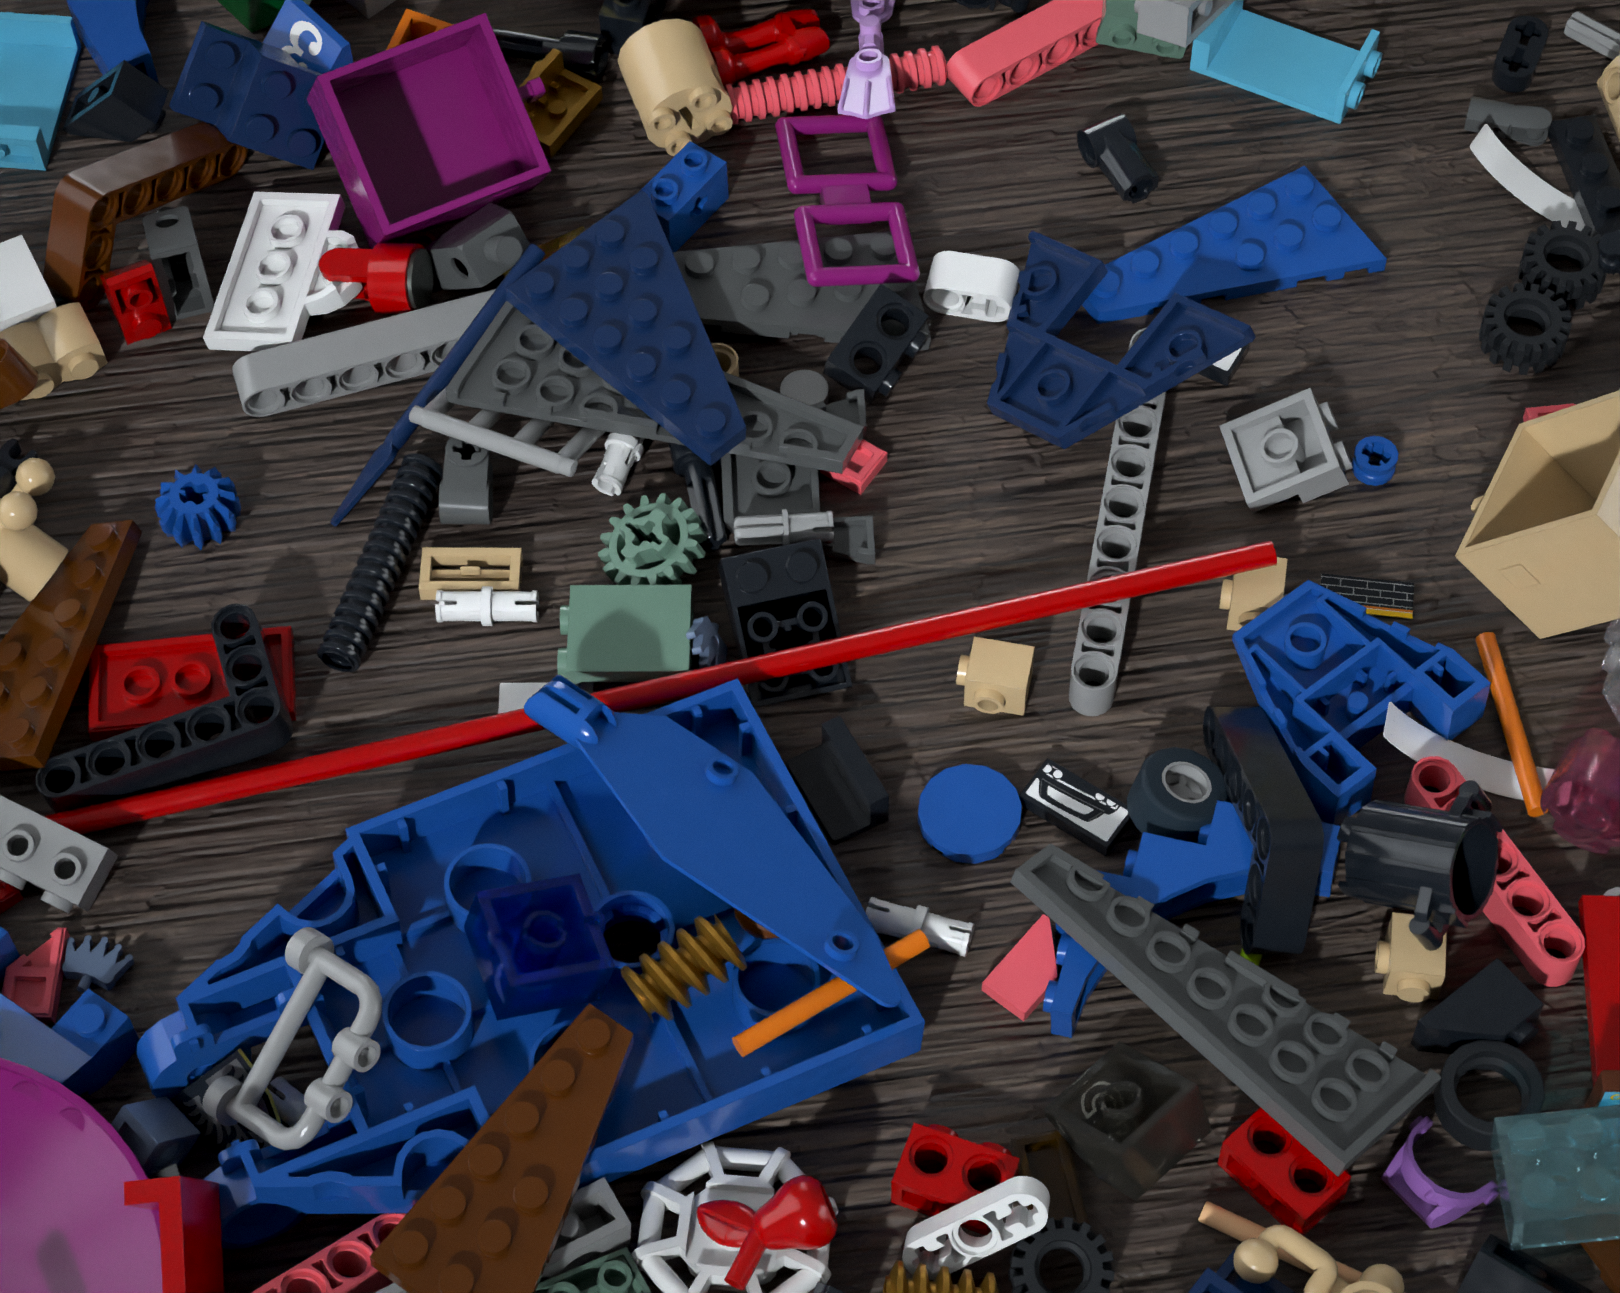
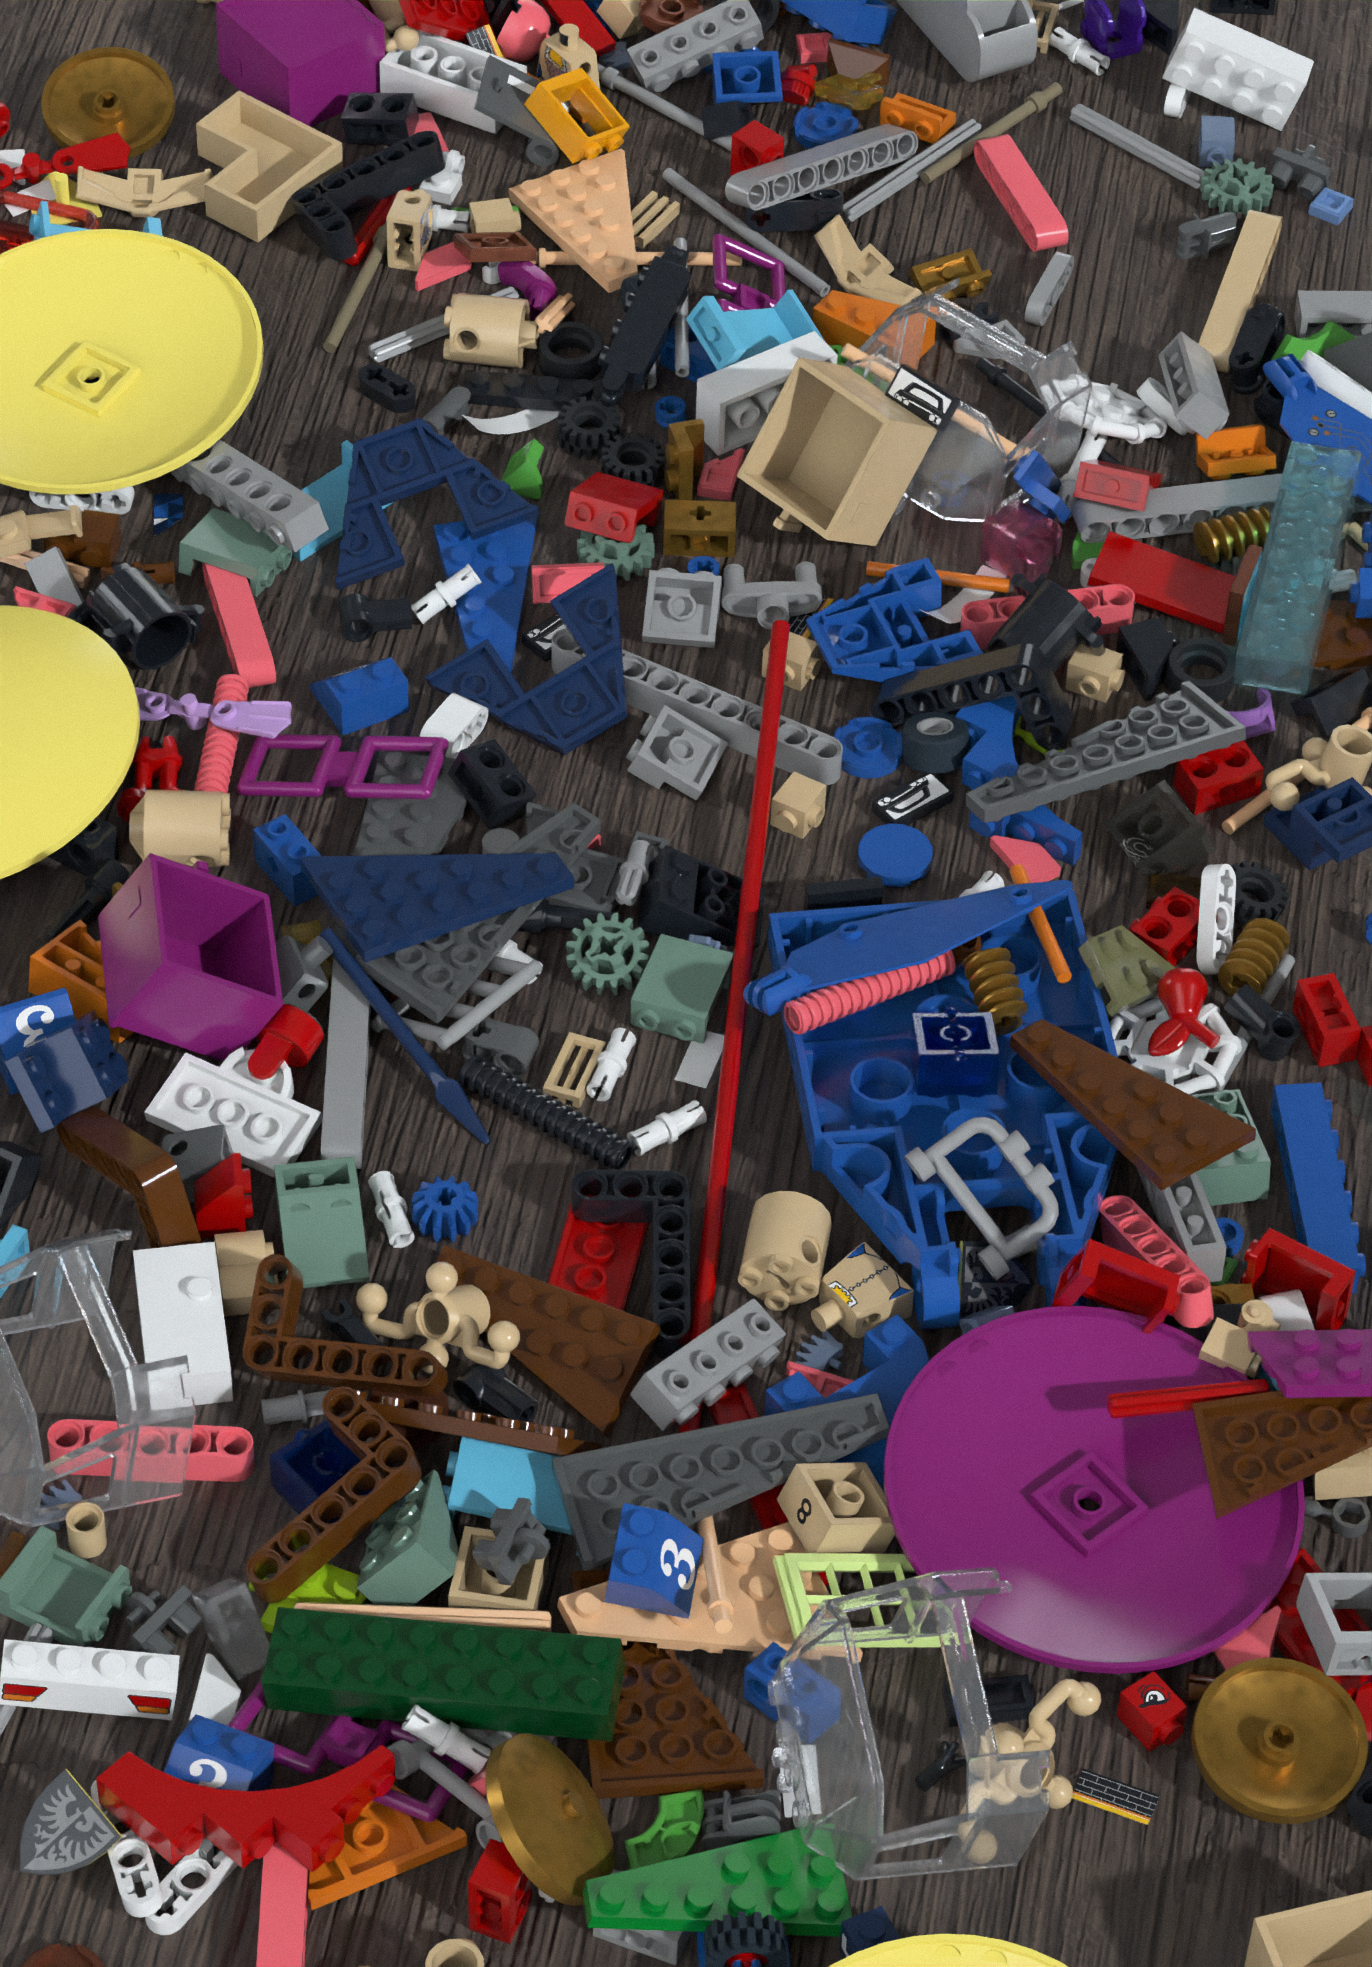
camera: 75 degrees left, 10 degrees down
(134, 396) = (322, 1221): none -> sand green slope
(170, 962) = (861, 1294): none -> tan torso
(201, 452) = (391, 1209): none -> white pin
(213, 865) = (785, 1249): none -> tan cylinder
(404, 692) = (667, 1127): none -> white pin
(586, 788) = (855, 995): none -> coral piece
(815, 1126) = (1124, 967): none -> olive wing
(984, 184) = (363, 695): none -> blue slope
(1026, 519) = (675, 753): none -> light grey plate
(1147, 720) = (869, 747): none -> blue tile
(1181, 207) = (445, 593): none -> white pin
(1275, 326) = (554, 579): none -> coral tile
(1342, 83) = (403, 464): none -> dark blue wing
(1355, 546) = (771, 599): none -> light grey connector
(1359, 354) = (625, 556): none -> sand green gear
(1414, 317) = (612, 506): none -> red panel
(1433, 219) = (523, 471): none -> bright green tile
(1445, 429) = (699, 528): none -> pearl gold brick
(1542, 364) = (684, 456): none -> pearl gold bracket

